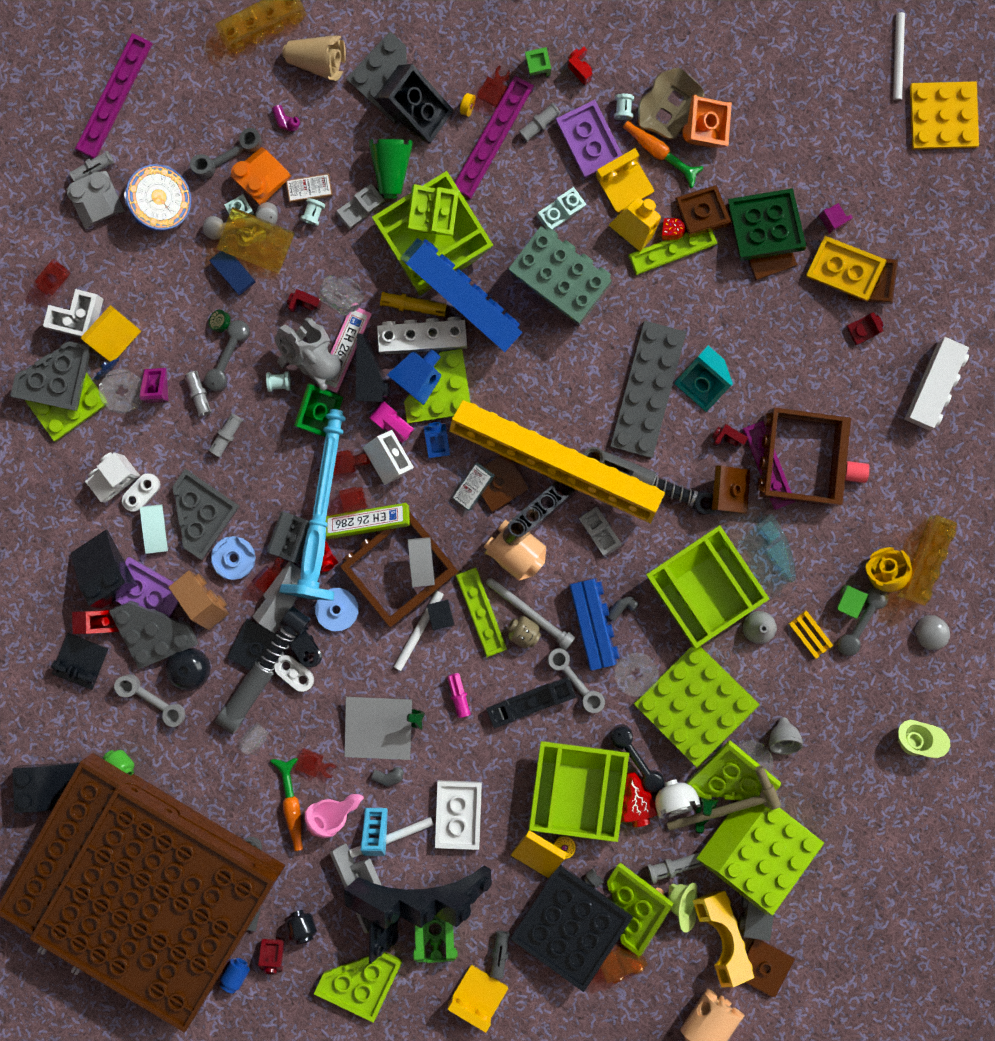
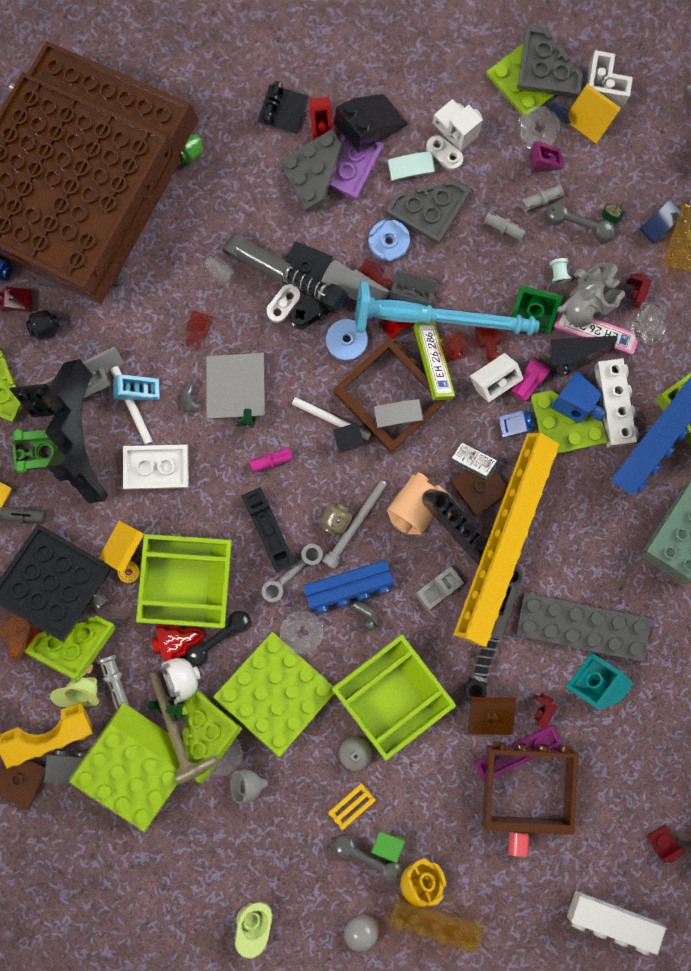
camera: 80 degrees right, 5 degrees down
(40, 785) = (165, 73): black slope -> none
(56, 269) = (639, 51): clear red brick -> none
(172, 714) = (263, 154): light grey piece -> none
(188, 669) = (281, 206): black cylinder -> none
(198, 602) = (346, 208): medium nougat brick -> none
(290, 804) = (159, 308): orange piece -> none
(329, 816) = (149, 344): bright pink piece -> none
(413, 304) = (645, 394): yellow pin -> none
(481, 612) = (352, 477): lime tile -> none
(777, 546) = (437, 767): clear light blue slope -> none

